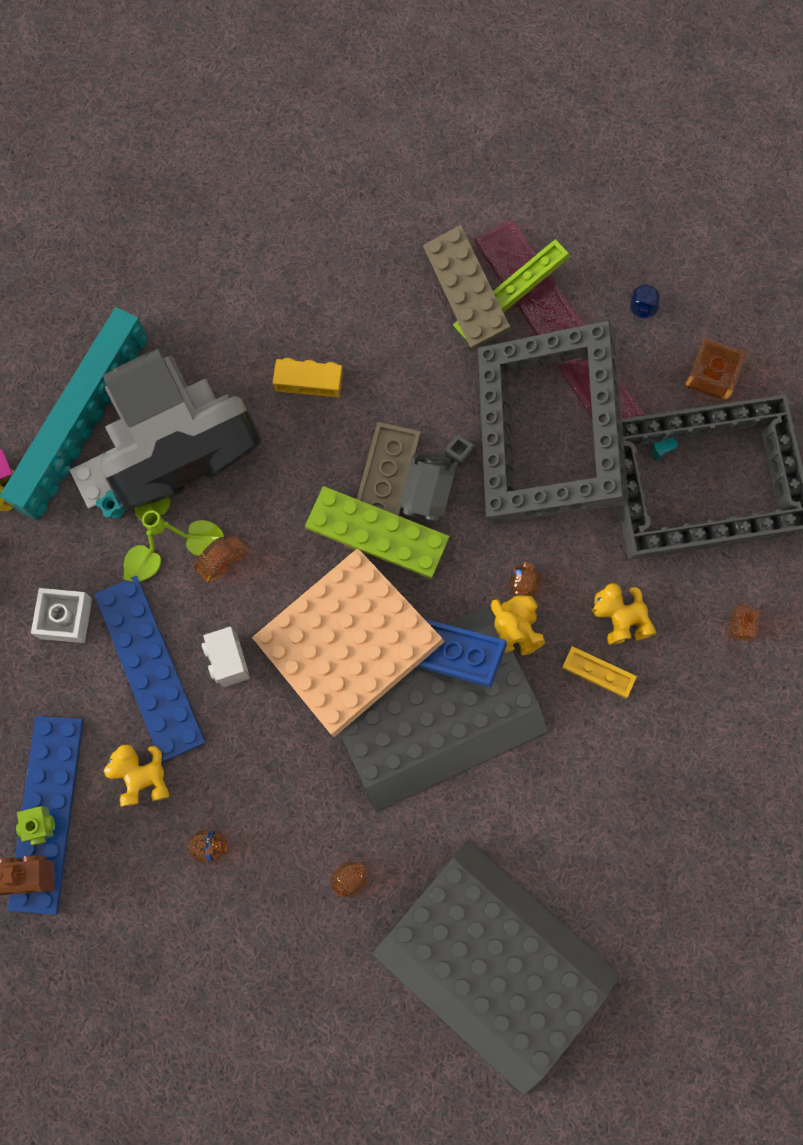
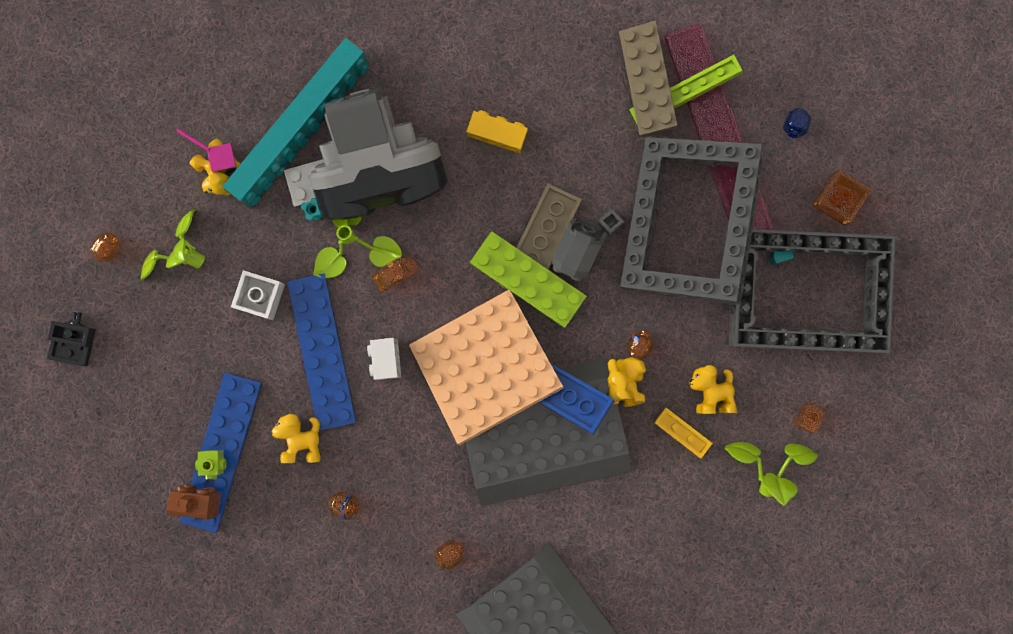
camera: 10 degrees right, 10 degrees up
(716, 706) = (772, 485): none -> lime plant

